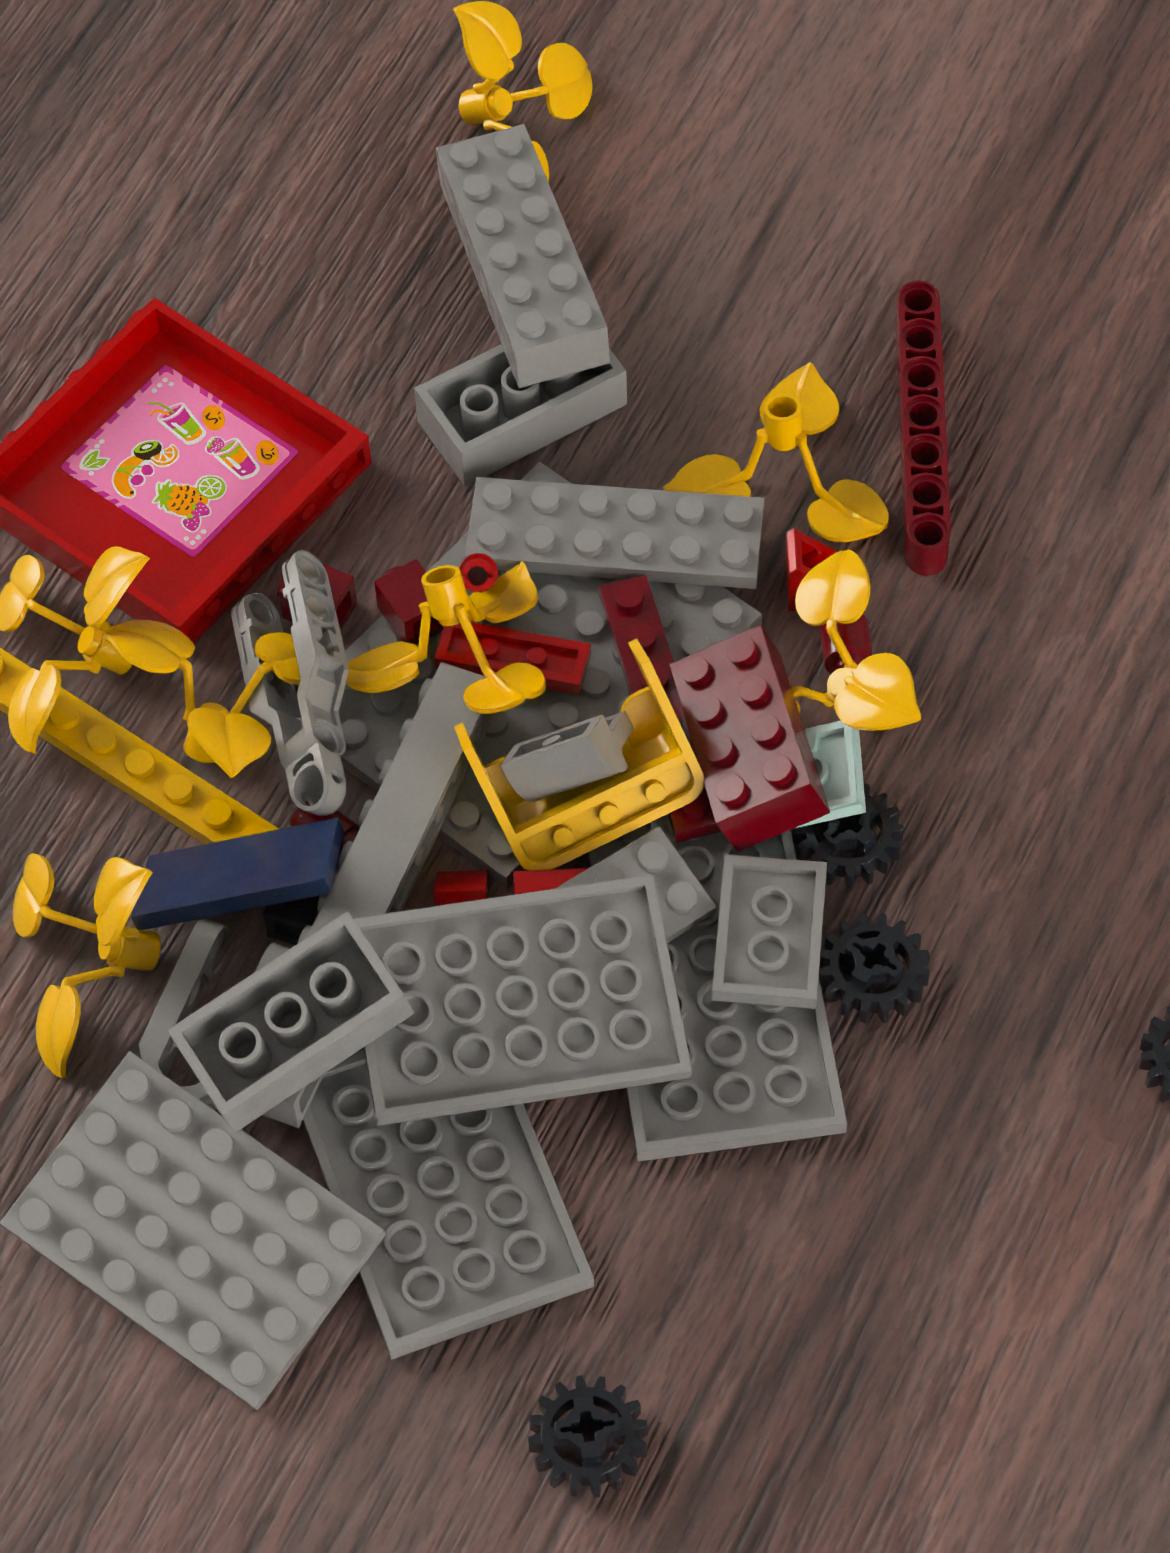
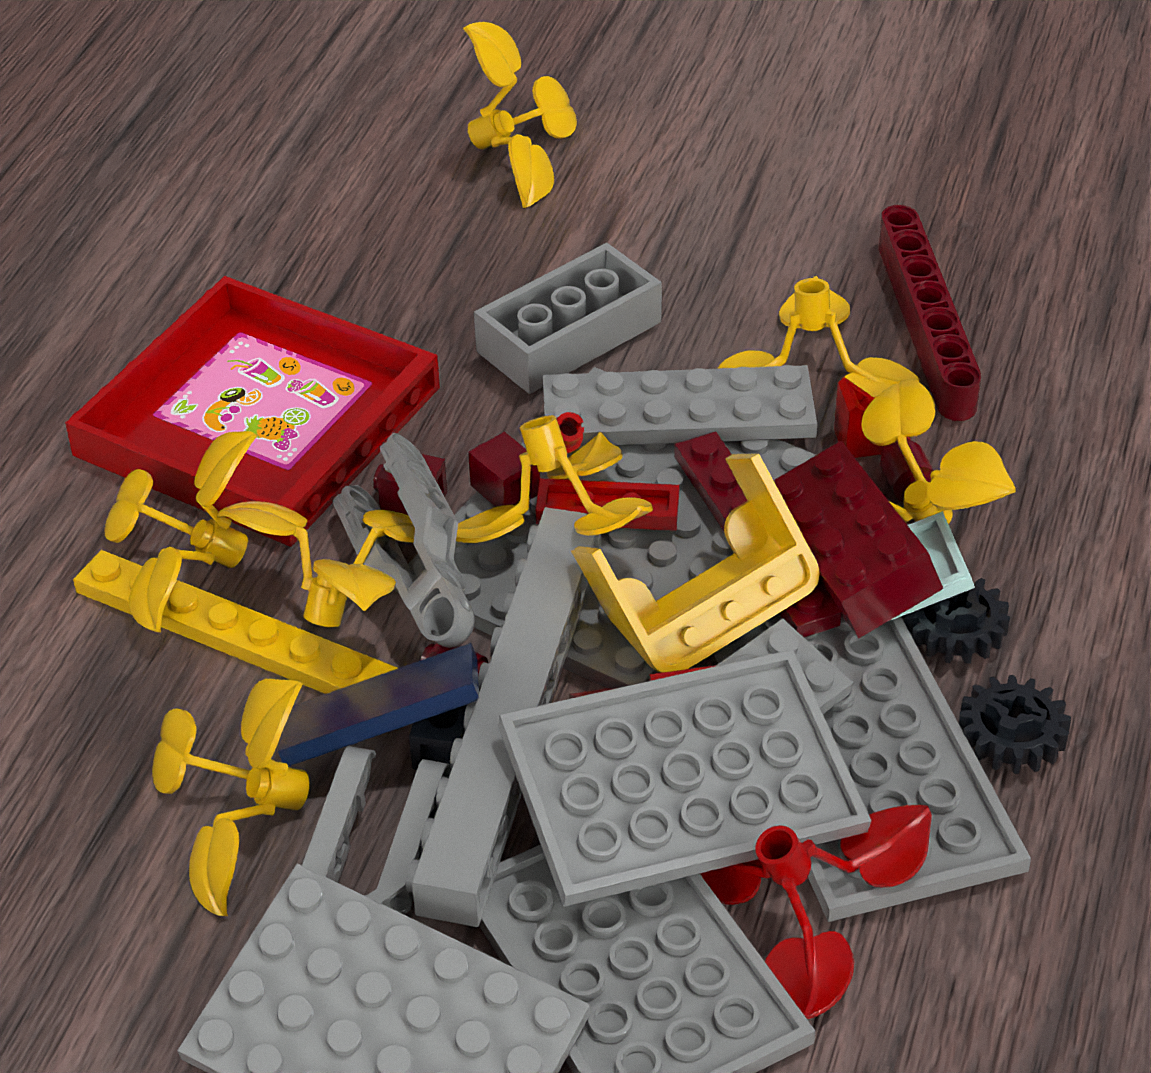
camera: 10 degrees left, 15 degrees down
(291, 1021) = (465, 804): light grey brick -> none
(522, 256) = (554, 206): light grey brick -> none
(568, 757) = (686, 565): light grey brick -> none
(613, 1210) = (821, 966): none -> red plant
(769, 931) = (910, 698): light grey plate -> none

